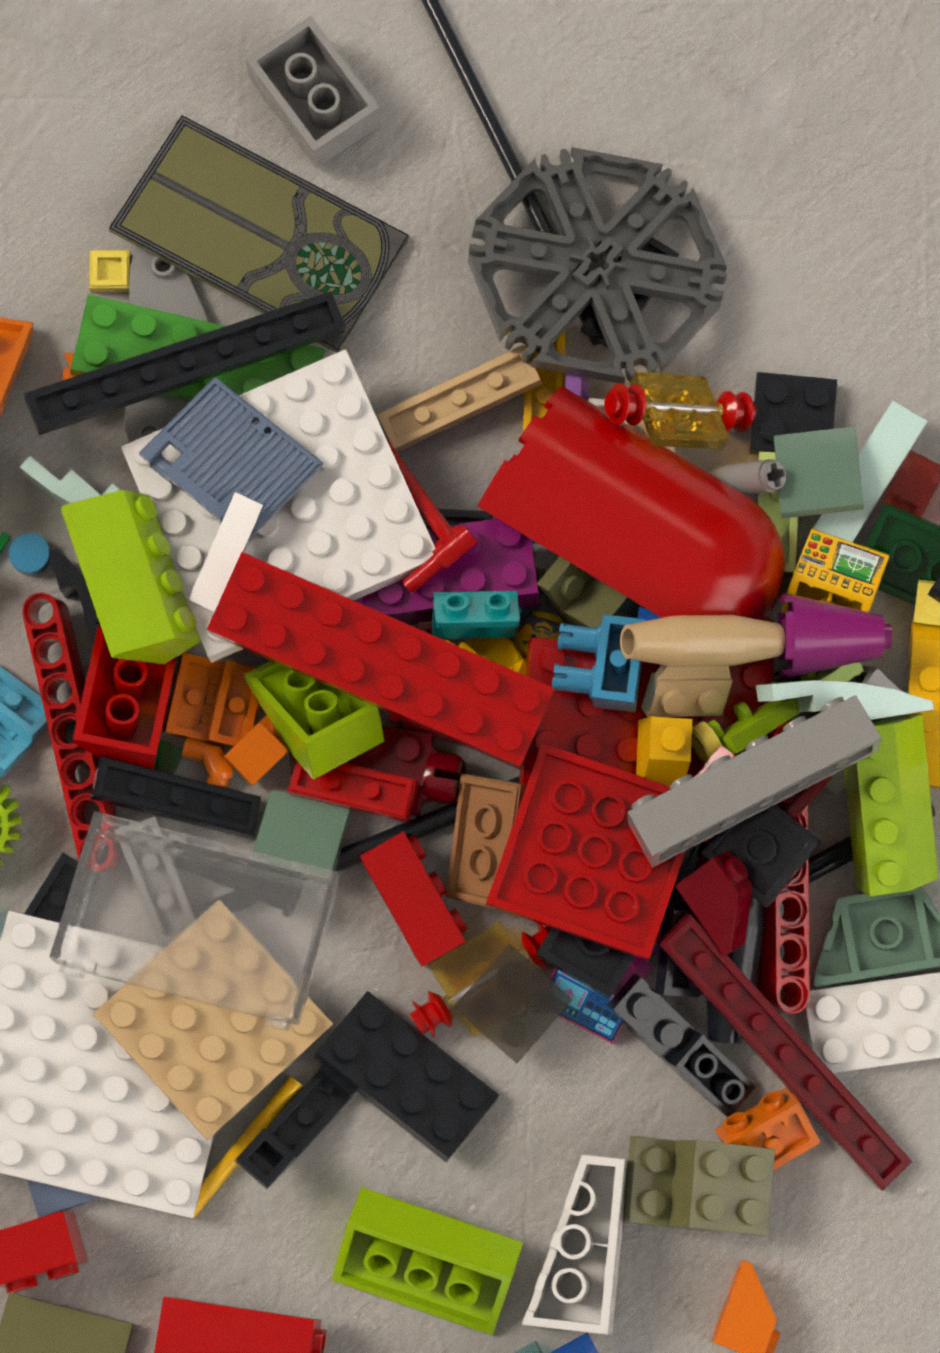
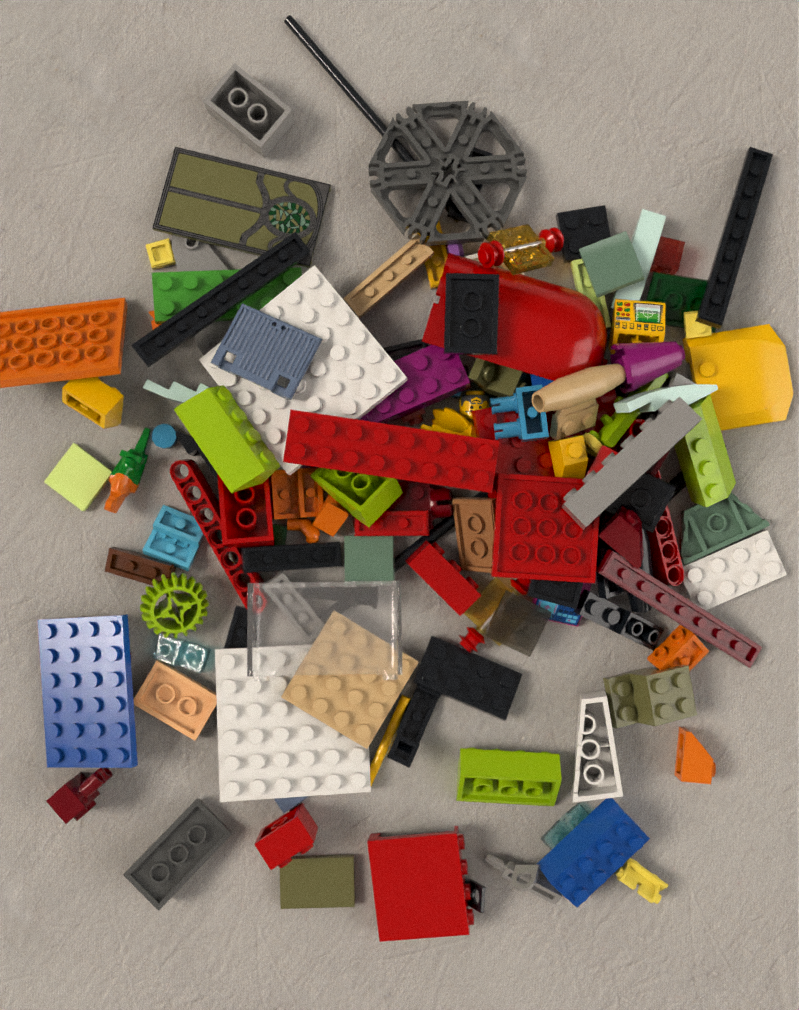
camera: 20 degrees left, 10 degrees up
(225, 551) = (280, 409): white sticker -> none
(452, 541) = (412, 366): red bar -> none
(475, 614) = (436, 405): teal bracket -> none
(563, 483) = (471, 314): none -> black plate
(753, 476) = (573, 277): light grey piece -> none

